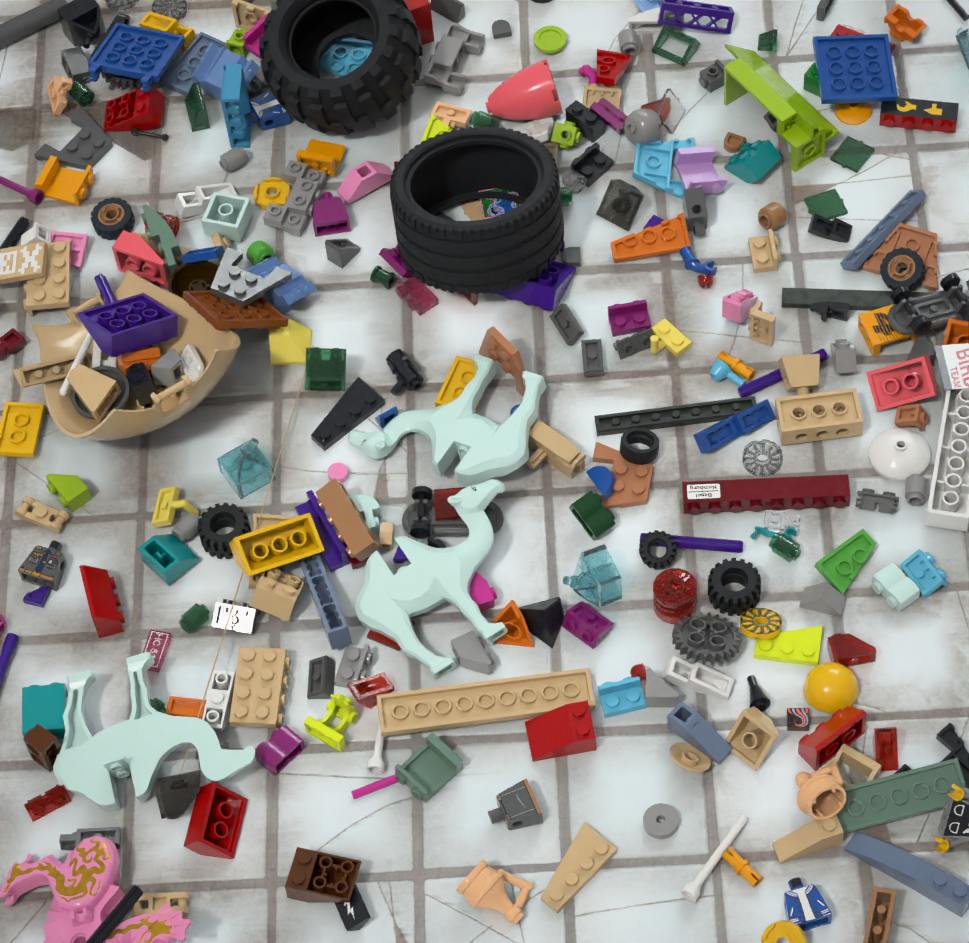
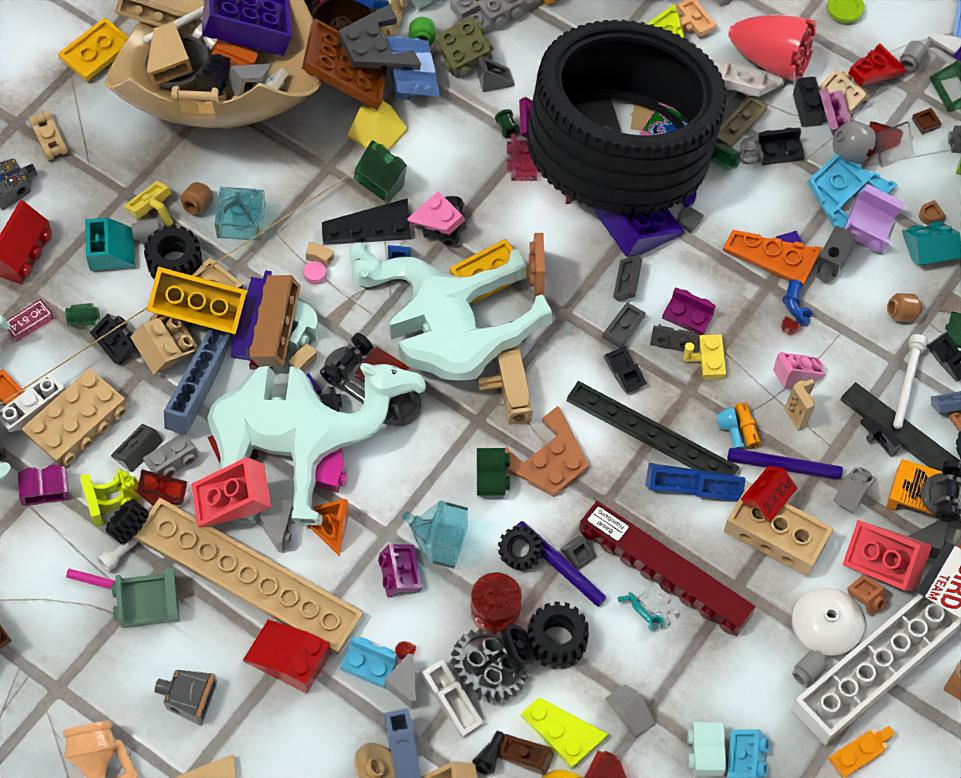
camera: 30 degrees right, 5 degrees up
(69, 489) = (86, 130): lime slope -> none
(202, 480) = (196, 198): none -> medium nougat head
(303, 244) = (463, 46): none -> olive brick
(329, 457) = (319, 253): none -> tan piece
(330, 216) = (511, 37): magenta torso -> none
(363, 180) = (560, 21): bright pink slope -> none
(367, 727) = (127, 521): none -> black tyre
(395, 370) = (437, 215): none -> bright pink wing
(428, 653) = (231, 493): none -> coral slope
(483, 119) = (719, 43): clear green brick -> none
(544, 619) = (366, 537): black slope -> none
(560, 131) = (780, 102): lime brick -> none
(587, 71) = (852, 57): dark pink arm -> none
(603, 479) = (531, 445): blue tile -> none
(620, 203) = (774, 199): clear smoke slope -> none
(620, 388) = (624, 370): none -> black slope
(639, 456) = (597, 425): black tyre -> none
(675, 82) = (926, 121): none -> reddish brown tile
(696, 526) = (578, 552): none -> dark grey slope
(716, 611) = (518, 647): none -> black plate
(751, 618) = (560, 681): tile -> none
(764, 253) = (866, 337): tan bracket -> none
(766, 467) = (695, 543): clear tile -> none
(780, 677) = (526, 754): none -> reddish brown slope
(785, 547) = (639, 632): clear green brick -> none
(795, 392) = (770, 492): none -> red panel
(800, 372) = (803, 473): tan torso -> none
(802, 235) = (916, 345): none -> white piece
(846, 560) = (684, 688): bright green wing -> none
(870, 498) = (772, 658): dark grey hinge -> none

